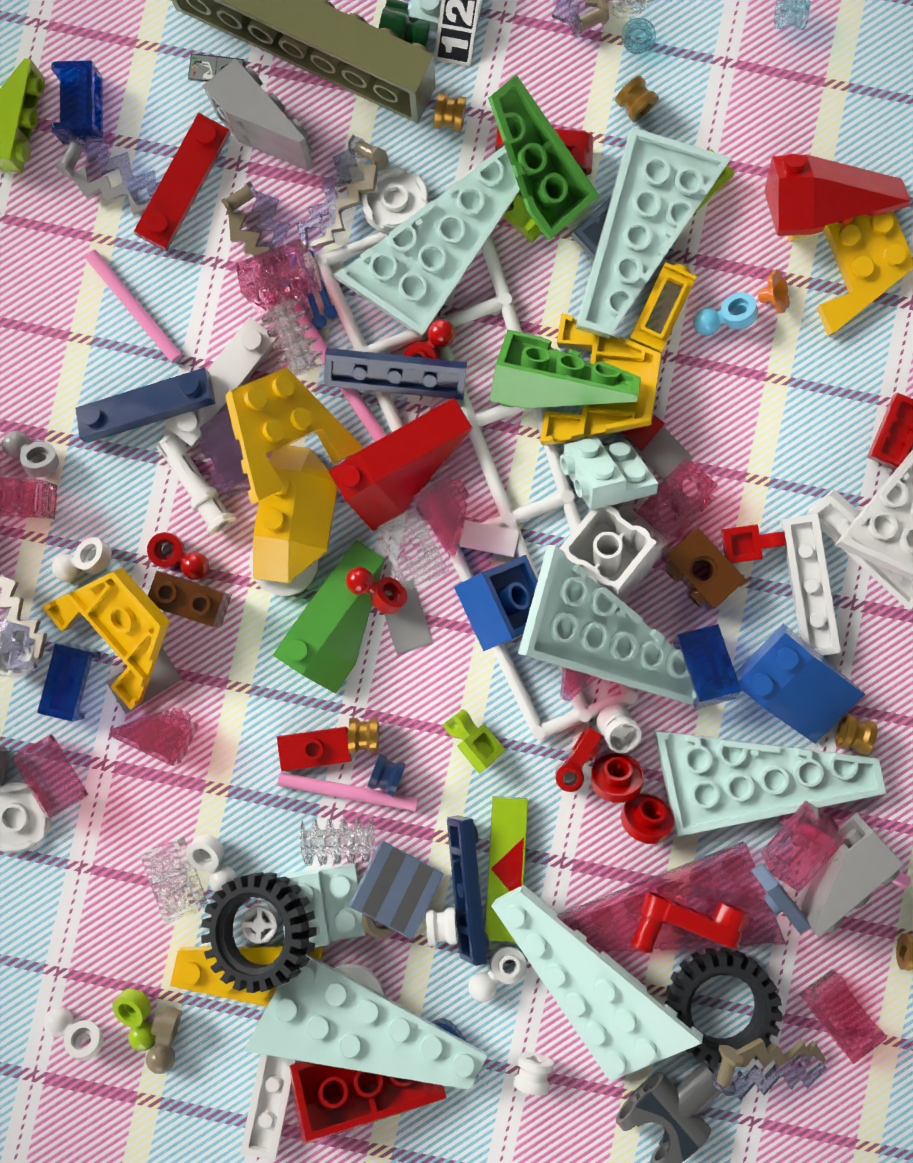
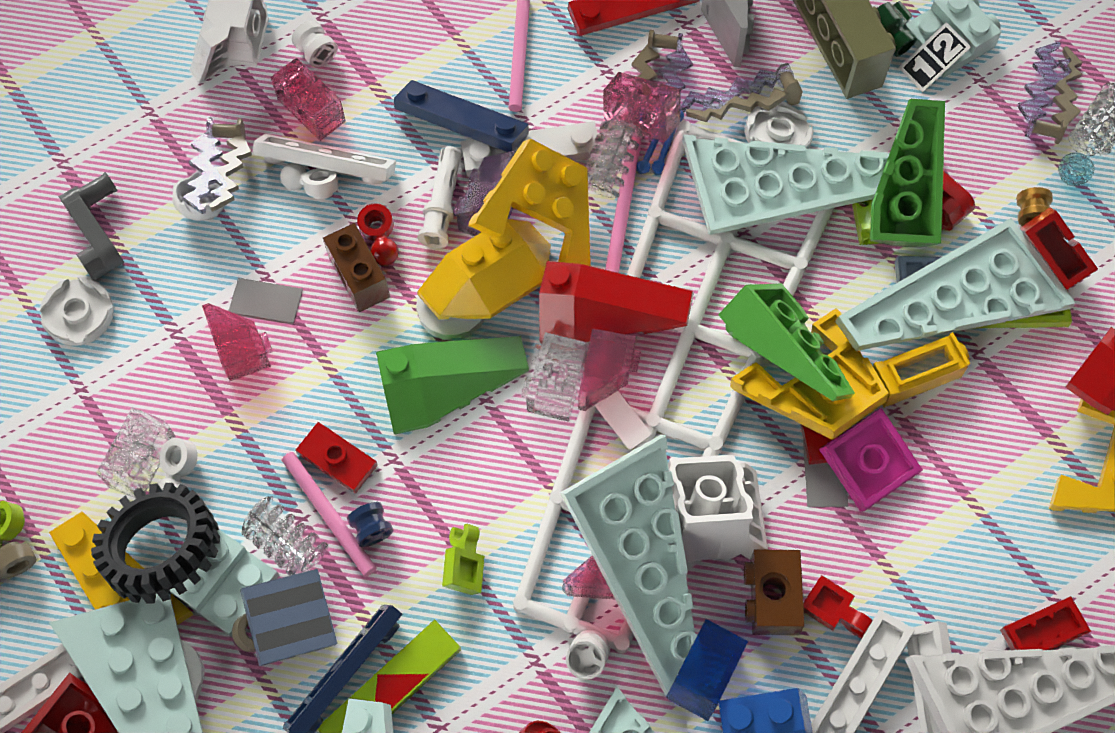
camera: 40 degrees right, 20 degrees down
(36, 458) = (349, 87): light grey plate -> none
(50, 777) = (130, 301): clear pink panel -> none
(66, 681) = (212, 244): clear blue panel -> none
(74, 533) = (282, 149): none -> white plate
(124, 620) = (296, 240): yellow wing -> none
(259, 930) = (157, 541): white wheel -> none
(363, 735) = (383, 478): pearl gold wheel -> none
(385, 594) = (503, 389): red plate -> none
(394, 373) = (664, 240): plate -> none
(409, 624) = (501, 426): light grey sticker -> none
(440, 335) = (725, 243): red plate -> none
(441, 927) = (293, 682): white wheel -> none
(449, 112) = (876, 106): pearl gold wheel -> none
(499, 601) = (576, 454): blue slope -> none
(585, 748) = (546, 647): red plate -> none
(607, 472) = (760, 445): light aqua plate -> none
(617, 777) = (549, 694): red plate -> none
(671, 494) = (800, 509): clear pink brick -> none
(685, 122) = (1065, 259): none -> red piece
(685, 411) = (871, 459): none -> dark pink tile
(708, 320) = (981, 421): medium azure plate -> none
(775, 292) = (1031, 434): orange plant -> none

